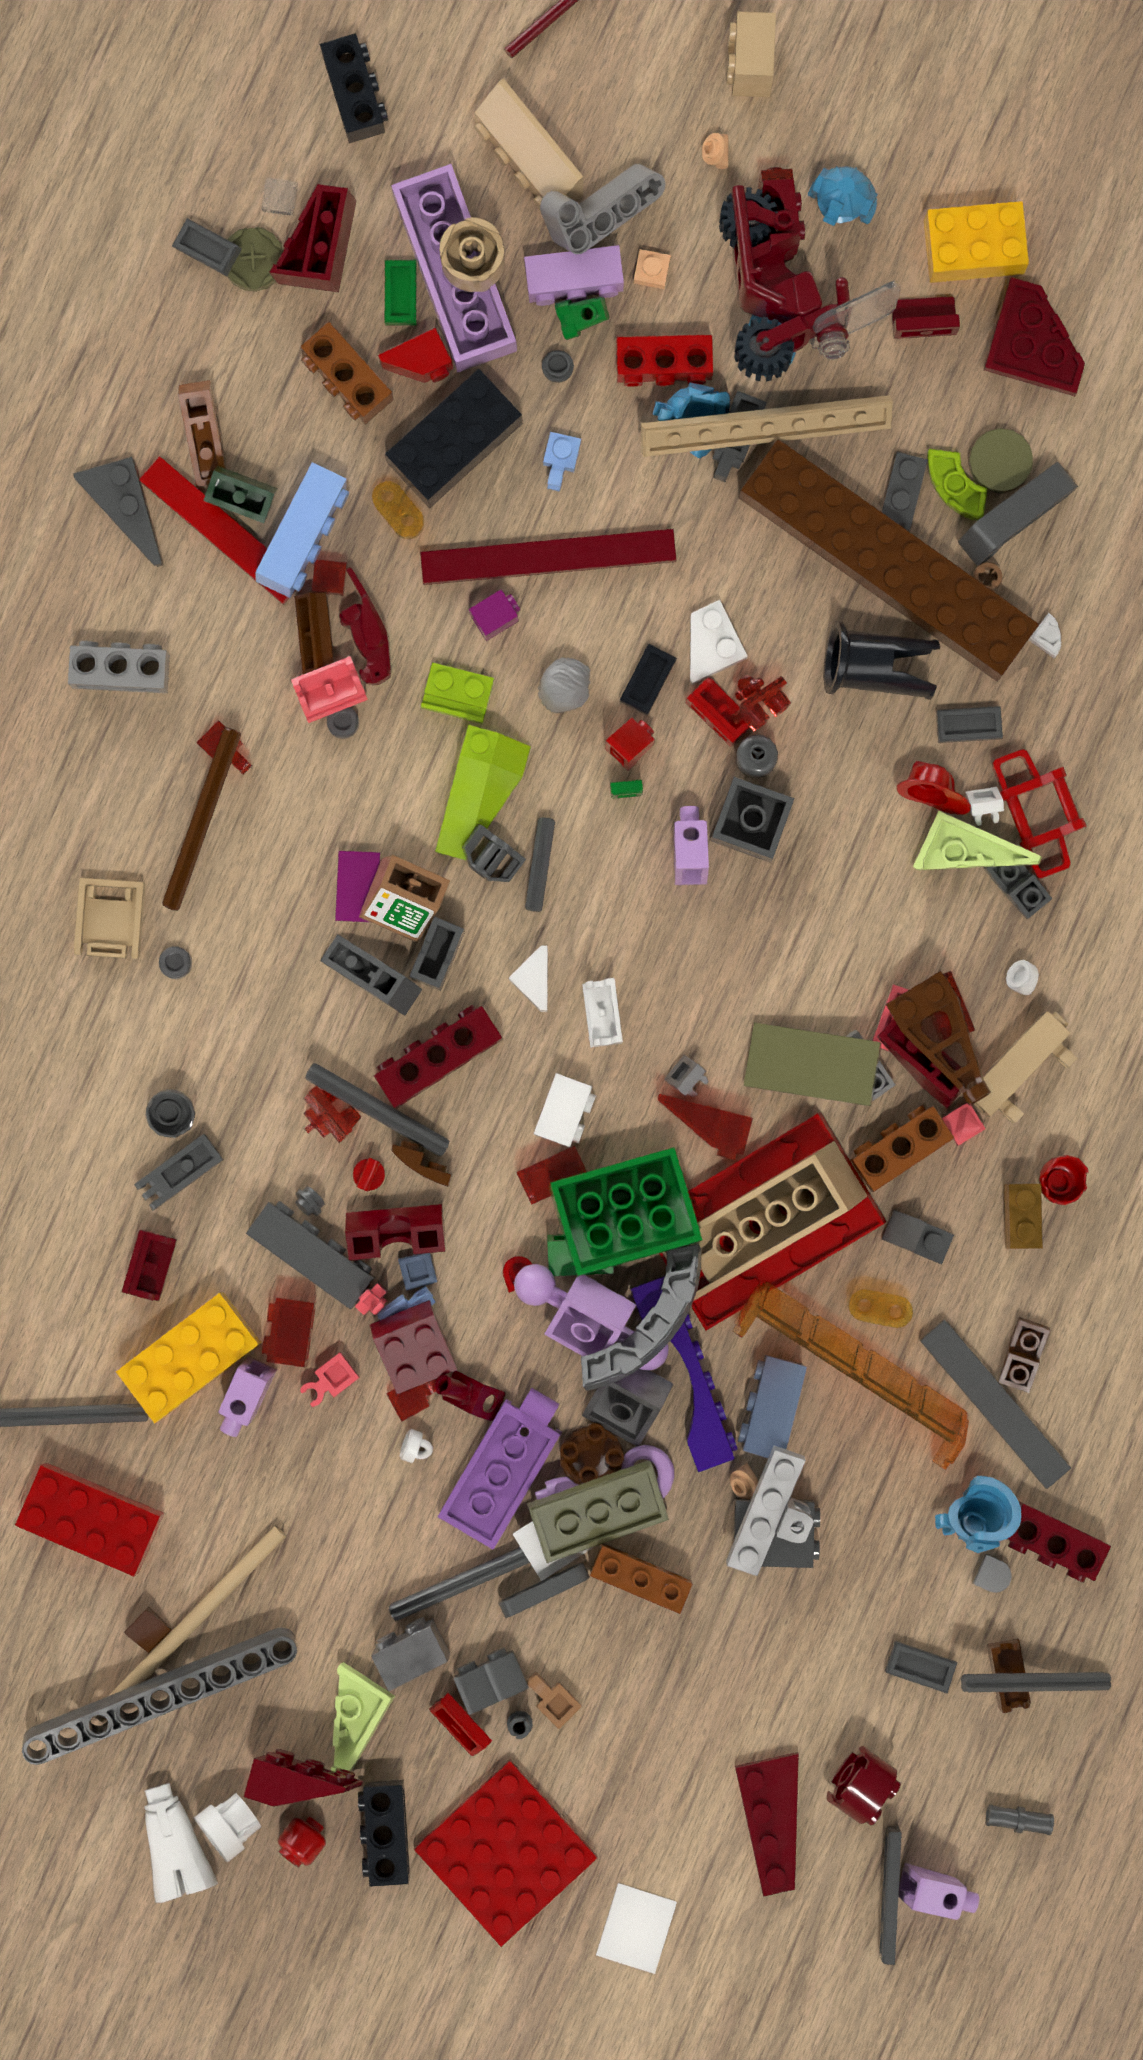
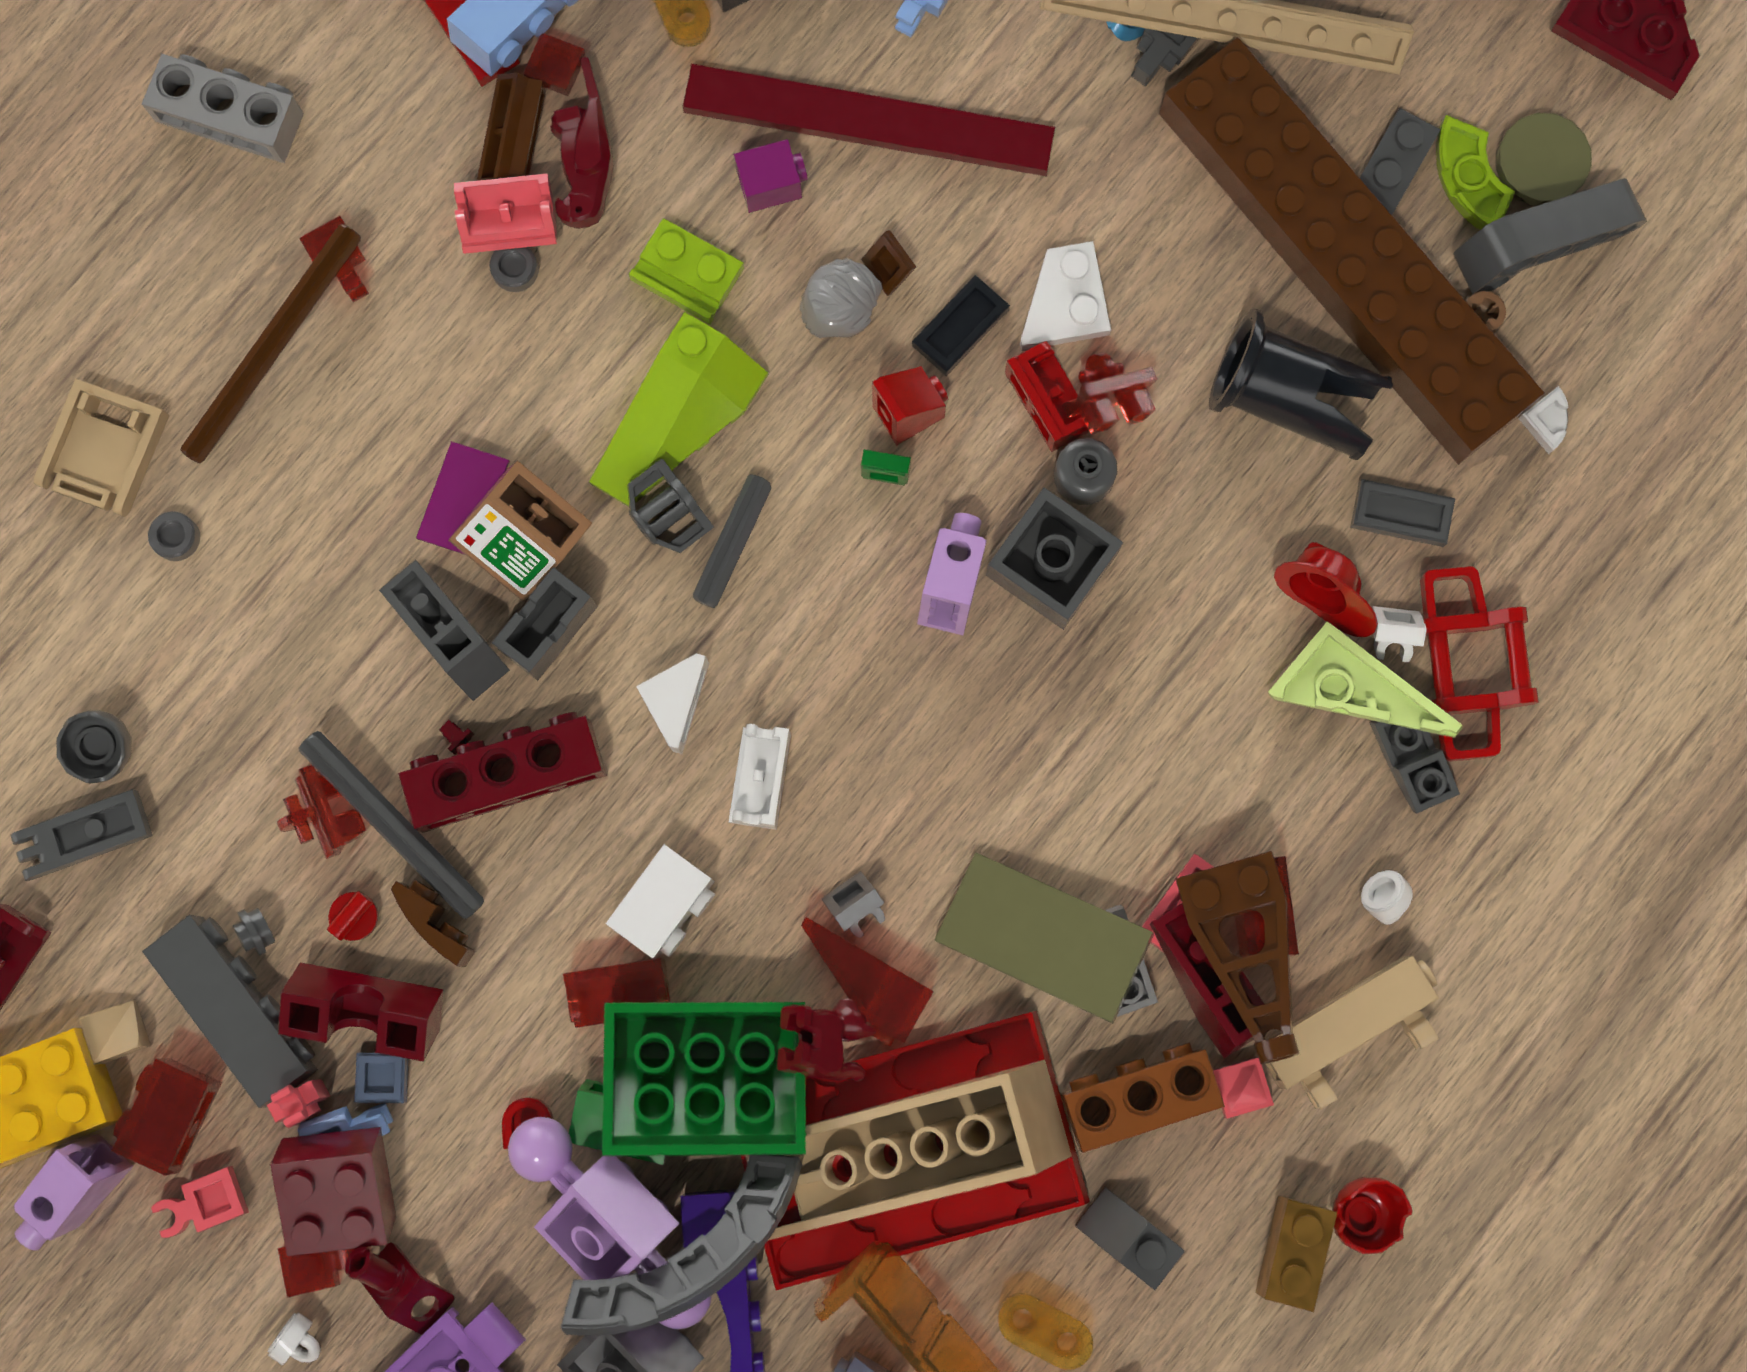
camera: 15 degrees right, 5 degrees down
(240, 1289) = (114, 1032): none -> tan slope
(398, 1041) = (455, 735): none -> dark red piece
(589, 651) = (888, 262): none -> reddish brown slope
(692, 1167) = (821, 1040): none -> dark red animal

